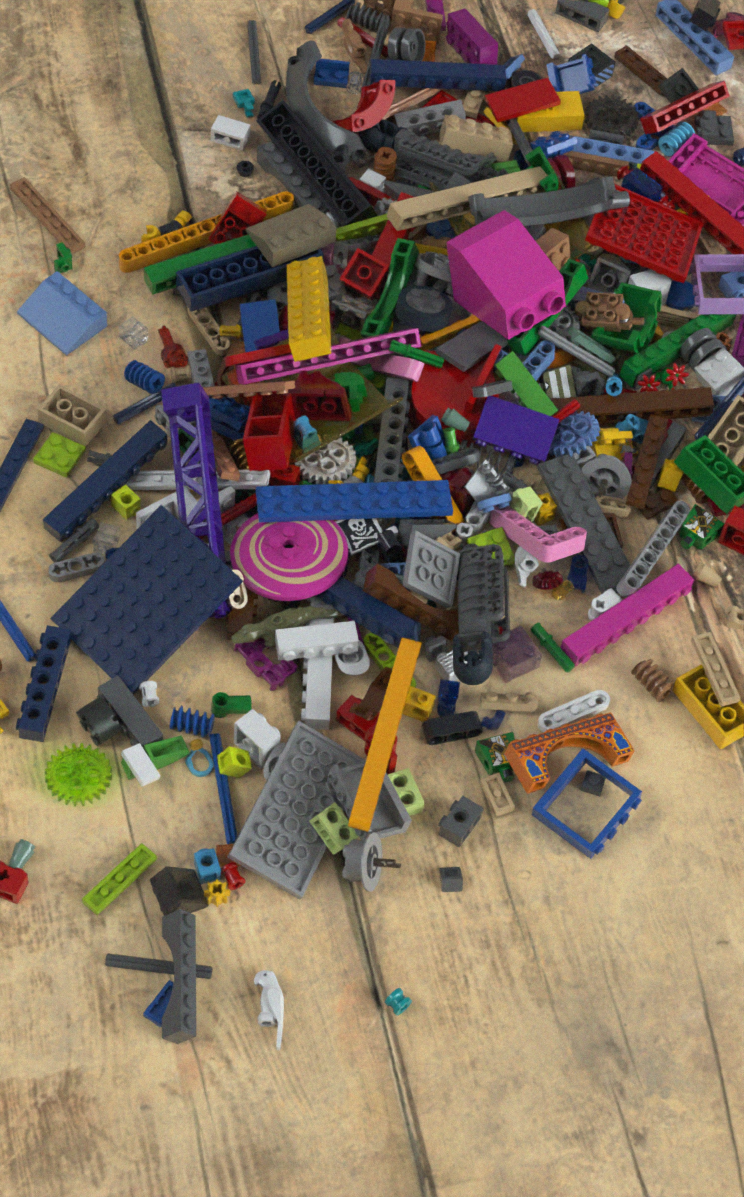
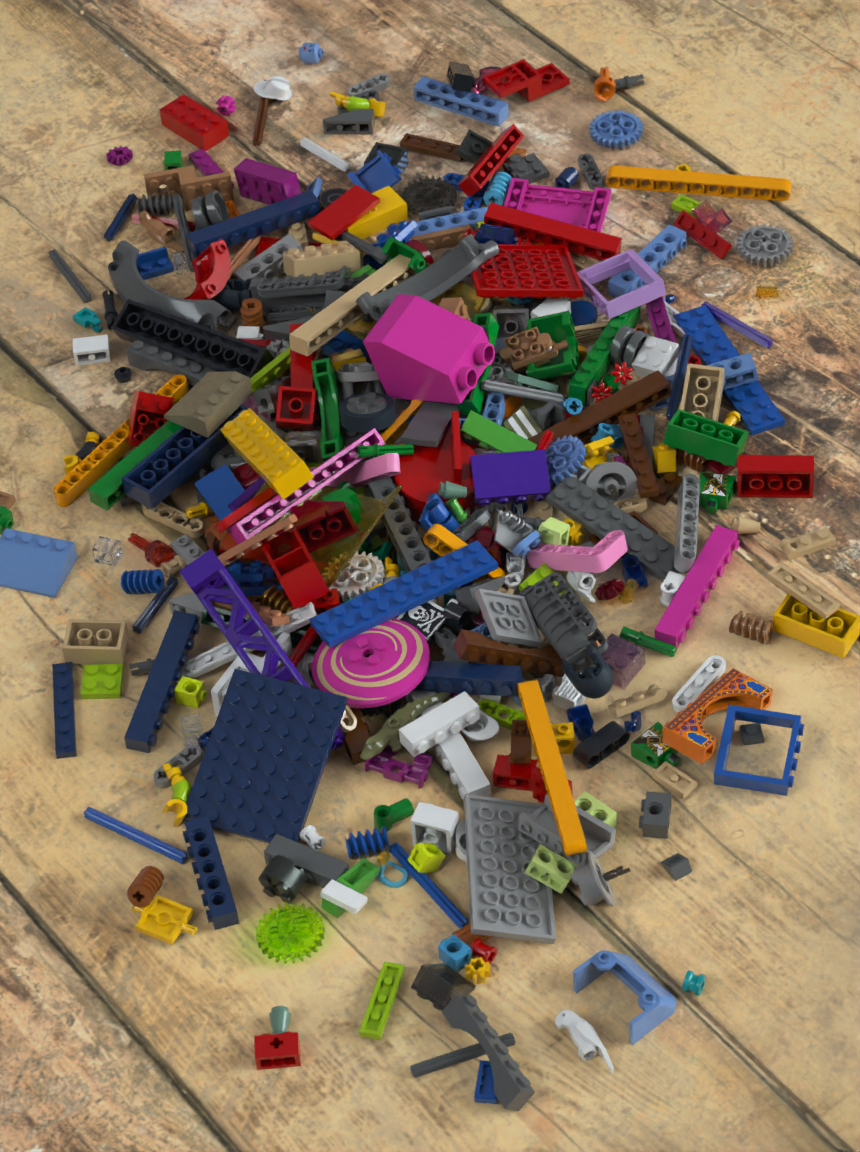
camera: 15 degrees left, 10 degrees down
(58, 554) = (165, 738): dark grey pin -> none
(61, 595) = (181, 792): none -> yellow piece
(304, 433) = (325, 557): piece -> none
(355, 1001) = (652, 999): none -> medium blue windscreen
(492, 388) = (471, 449): dark grey beam -> none

